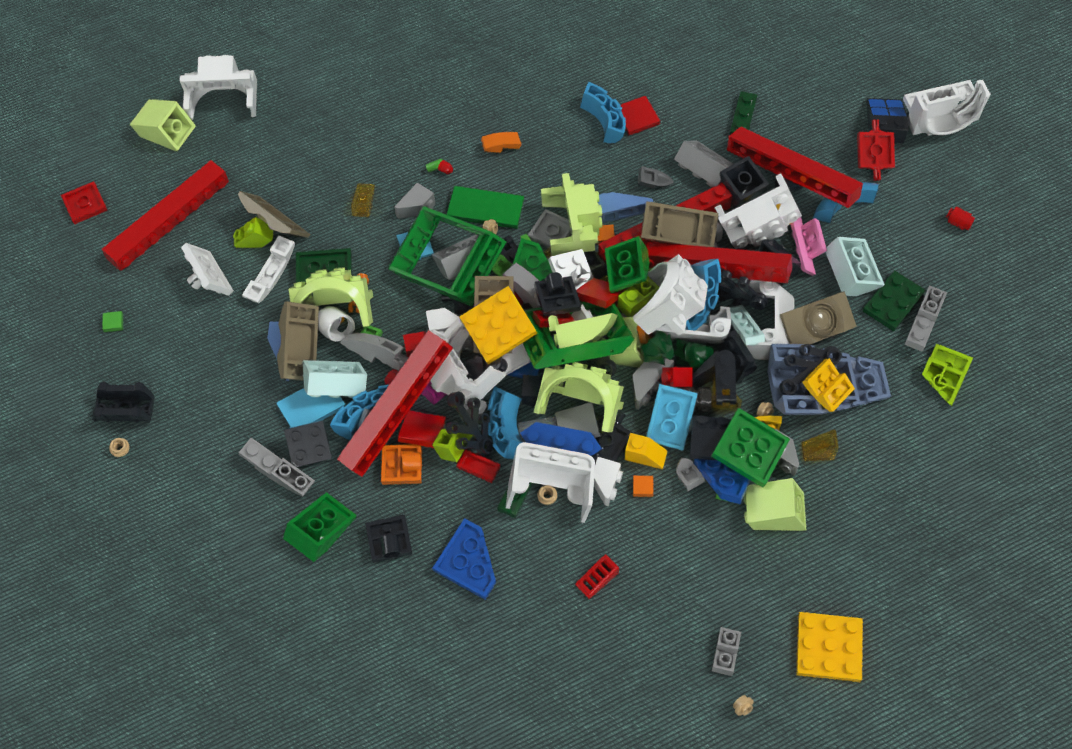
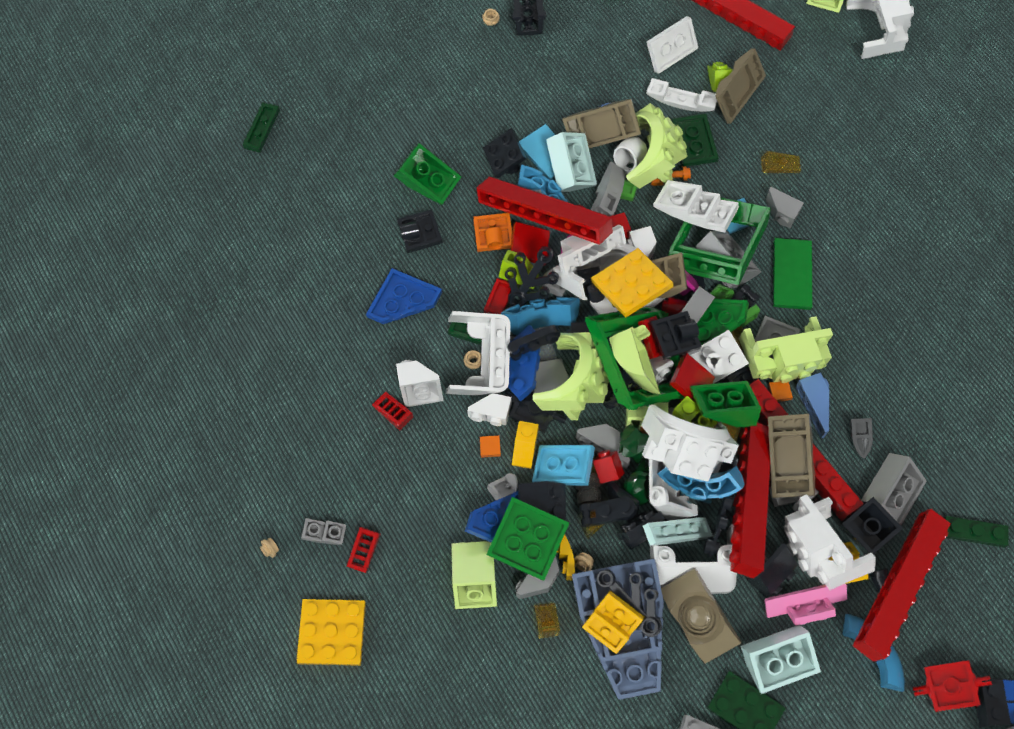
camera: 85 degrees right, 5 degrees up
(217, 712) = (261, 127): none -> dark green plate
(276, 468) = (480, 133): light grey slope -> none
(409, 269) = (696, 206): none -> white slope
(440, 165) = (834, 225): arm -> none
(490, 226) = (765, 278): tan plate -> none
(498, 141) = (878, 278): orange slope -> none
(548, 423) = (533, 341): none -> black plate
(579, 543) = (418, 384): none -> white slope
(606, 111) = (953, 368): dark azure brick -> none
(639, 115) = (946, 414): red tile -> none
(743, 617) = (359, 539): none -> red slope

